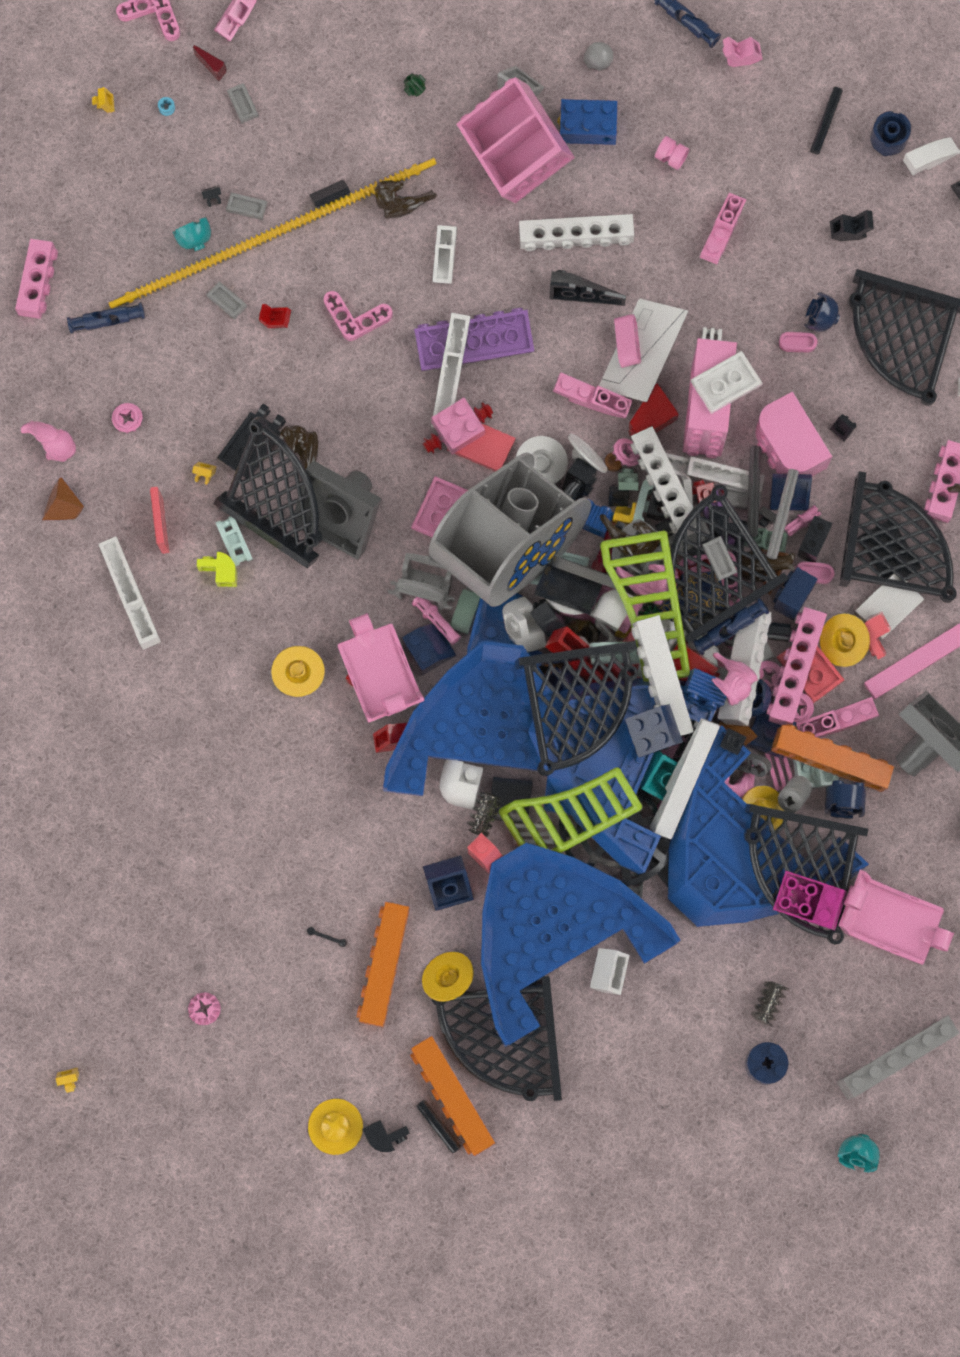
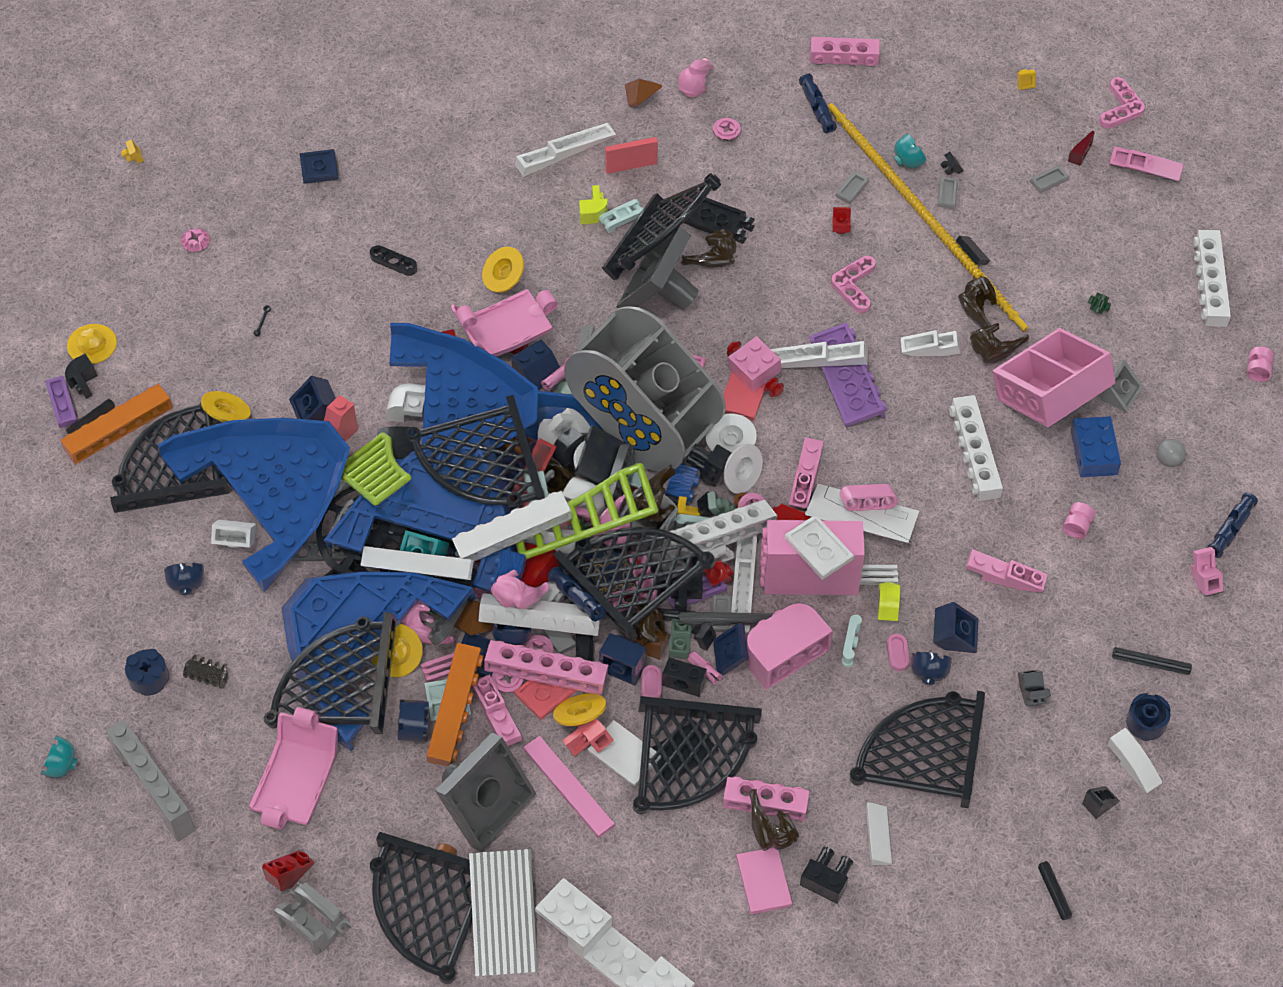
camera: 80 degrees right, 20 degrees down
(117, 865) = (318, 166): none -> dark blue plate
(162, 101) = (1029, 127): medium azure bush -> none
(205, 470) = (683, 183): yellow tile -> none
(261, 781) = (390, 254): none -> black beam
(384, 964) = (236, 361): orange brick -> none
(414, 1158) = (61, 401): none -> medium lavender plate
(456, 197) = (990, 347): none -> dark brown hair
(484, 814) = (377, 418): clear smoke piece -> none
(575, 288) = (916, 448): black wedge -> none
(654, 730) = (456, 519): brick -> none
(658, 1023) = (184, 577): none -> dark blue cylinder
(719, 558) = (640, 568): light grey tile -> none
(732, 742) = (455, 597): black tile -> none
(748, 339) = (888, 601): none -> neon yellow brick
(781, 286) = (955, 628): none -> dark blue slope
(782, 514) = (698, 628): light grey axle -> none
(785, 382) = (851, 641): none -> light aqua plate
(795, 794) = (413, 670): light grey piece -> none
(810, 900) = (301, 683): dark pink slope -> none
(843, 427) = (810, 696): black tile -> none

